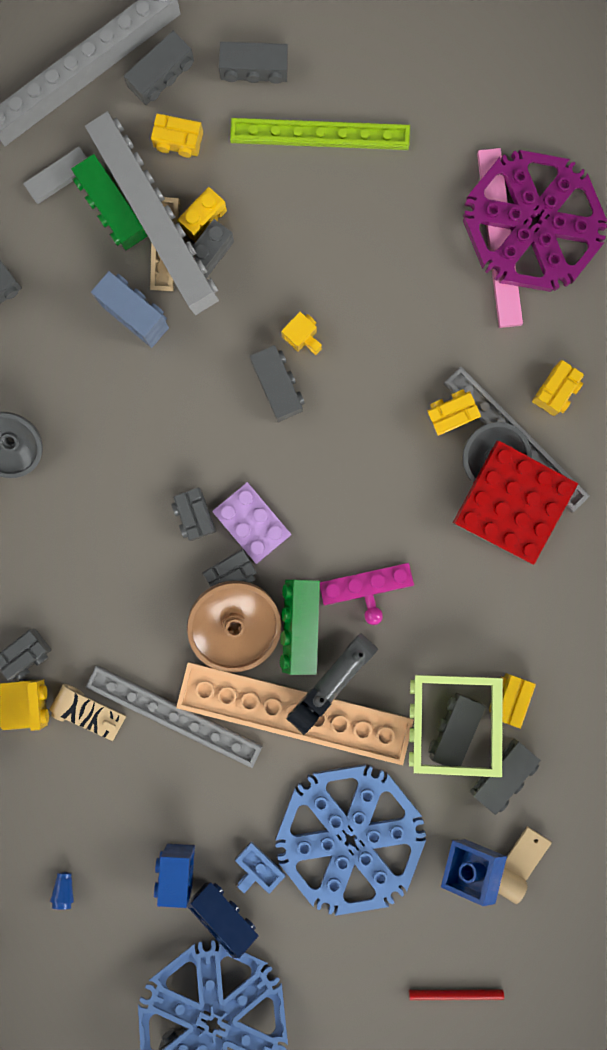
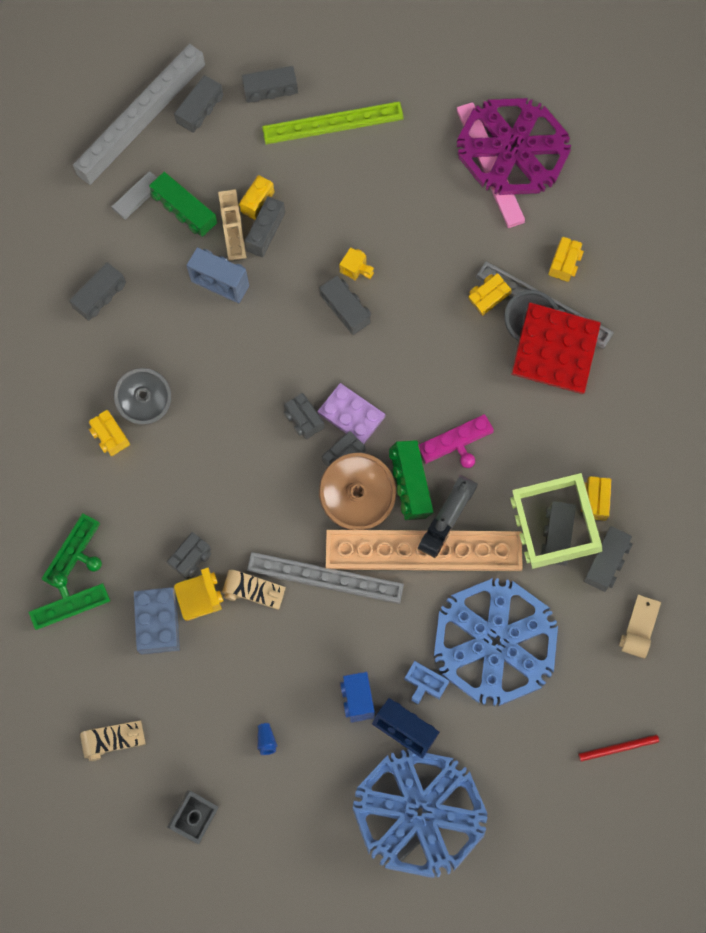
camera: 10 degrees left, 15 degrees down
(152, 214) = (223, 205): light grey brick -> none
(177, 135) = (223, 146): yellow brick -> none
(473, 872) = (602, 635): blue brick -> none

